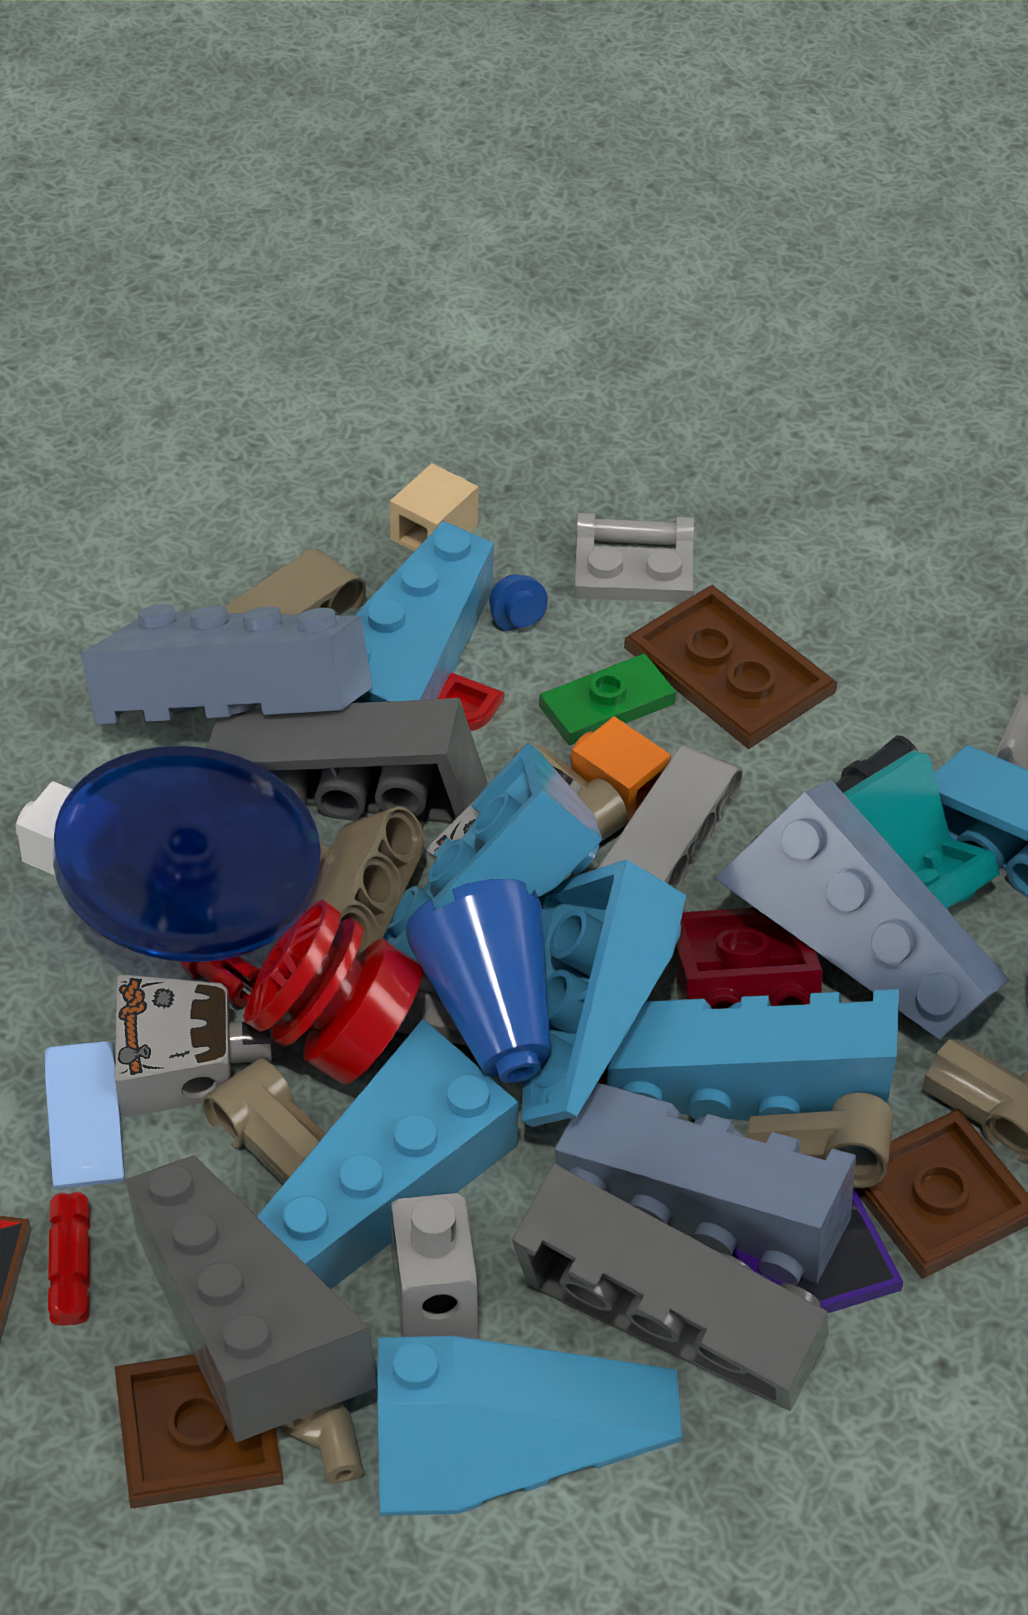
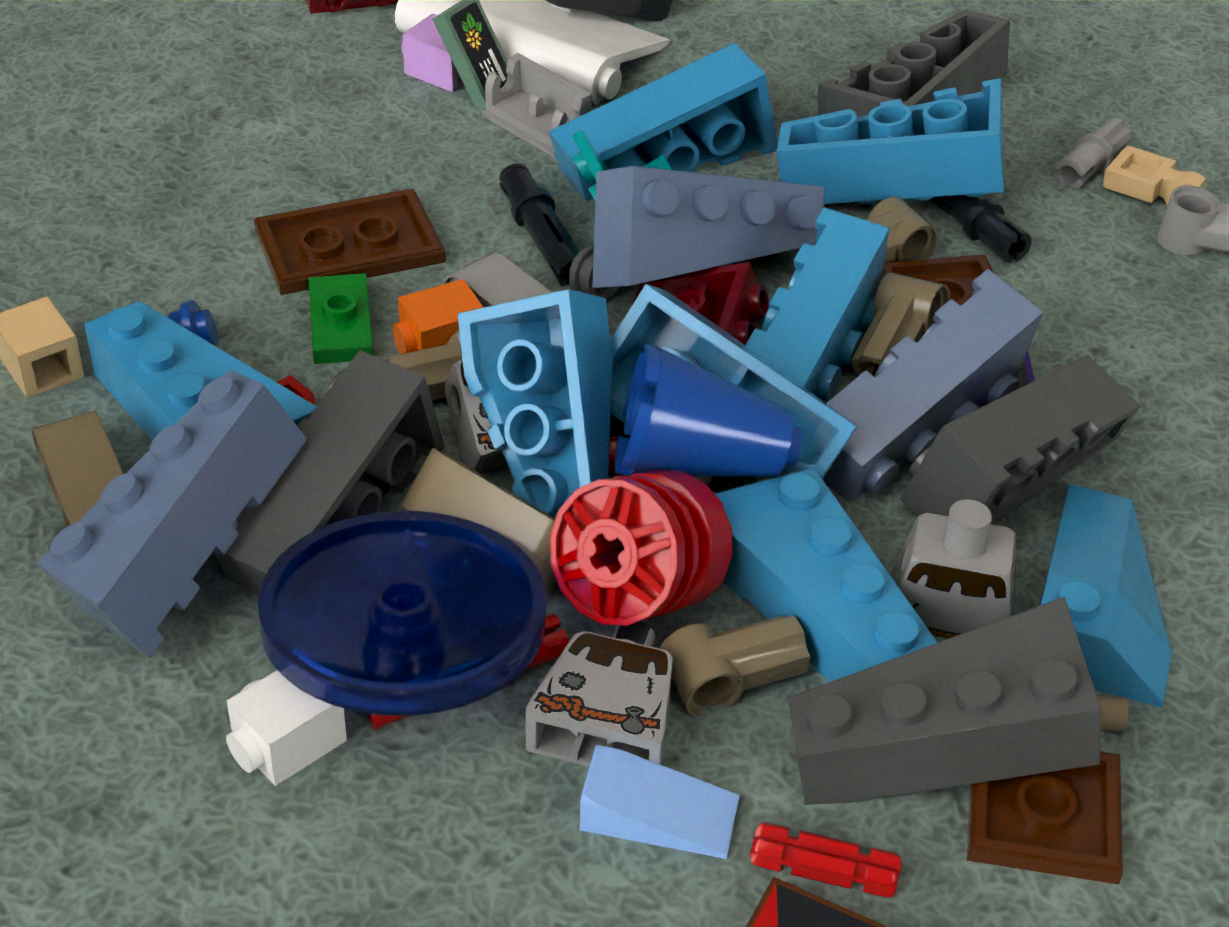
camera: 70 degrees left, 5 degrees down
(634, 572) = (194, 265): light grey plate -> none

